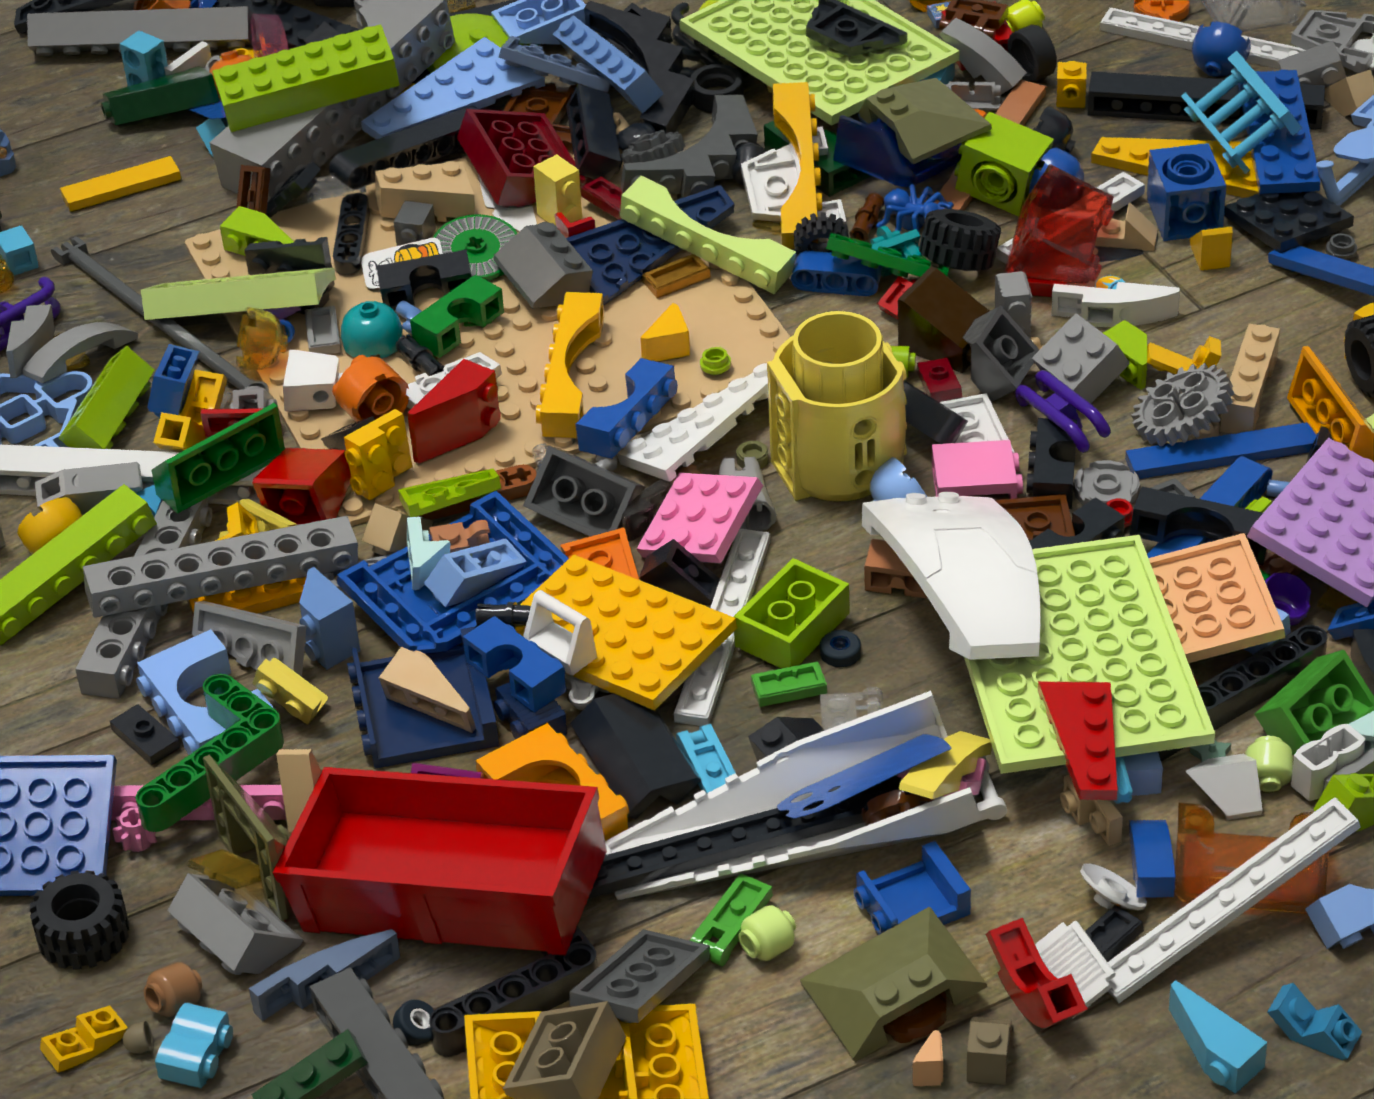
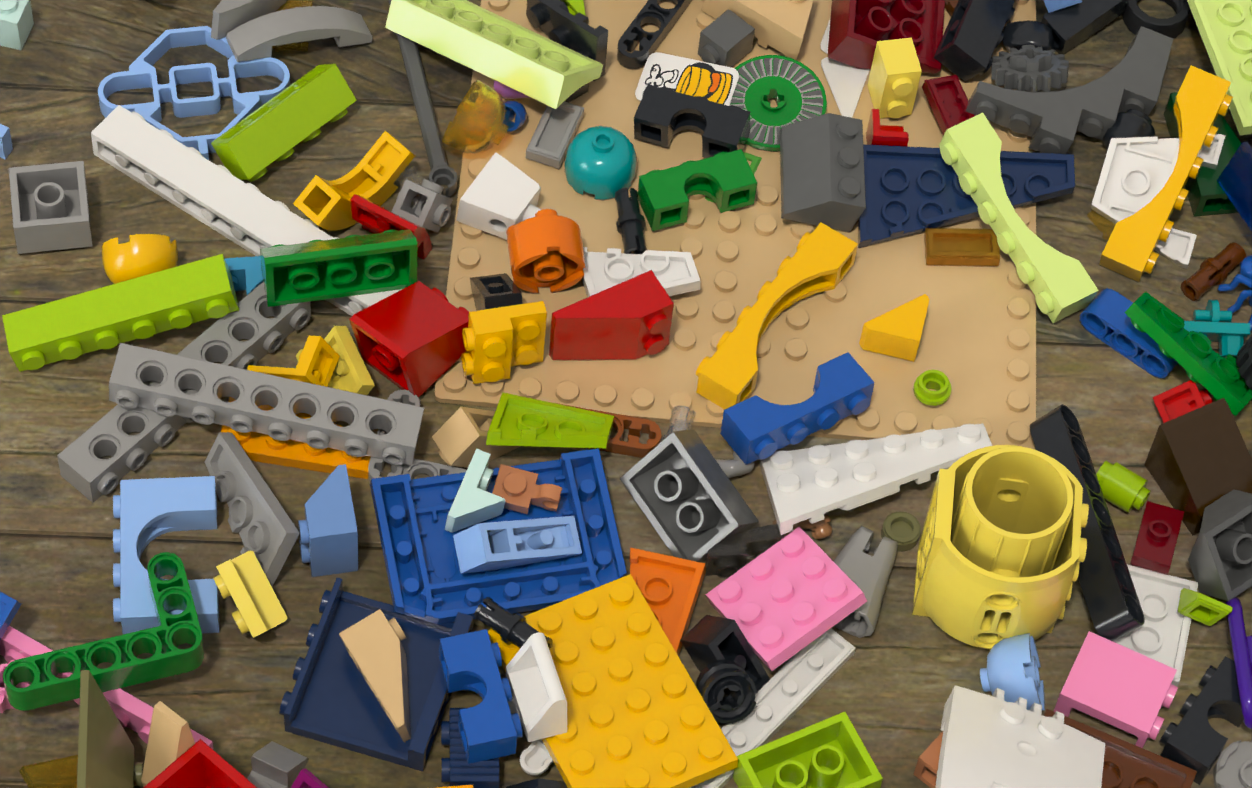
camera: 20 degrees right, 15 degrees up
(88, 484) = (199, 227): light grey slope -> none
(144, 734) = (87, 565): black plate -> none
(172, 380) = (359, 130): blue piece -> none
(407, 311) = (656, 157): medium blue arm -> none
(705, 578) = (729, 675): none -> black wheel
(817, 228) = (1135, 276): black tyre -> none
(1001, 400) = (1202, 607): none -> lime slope

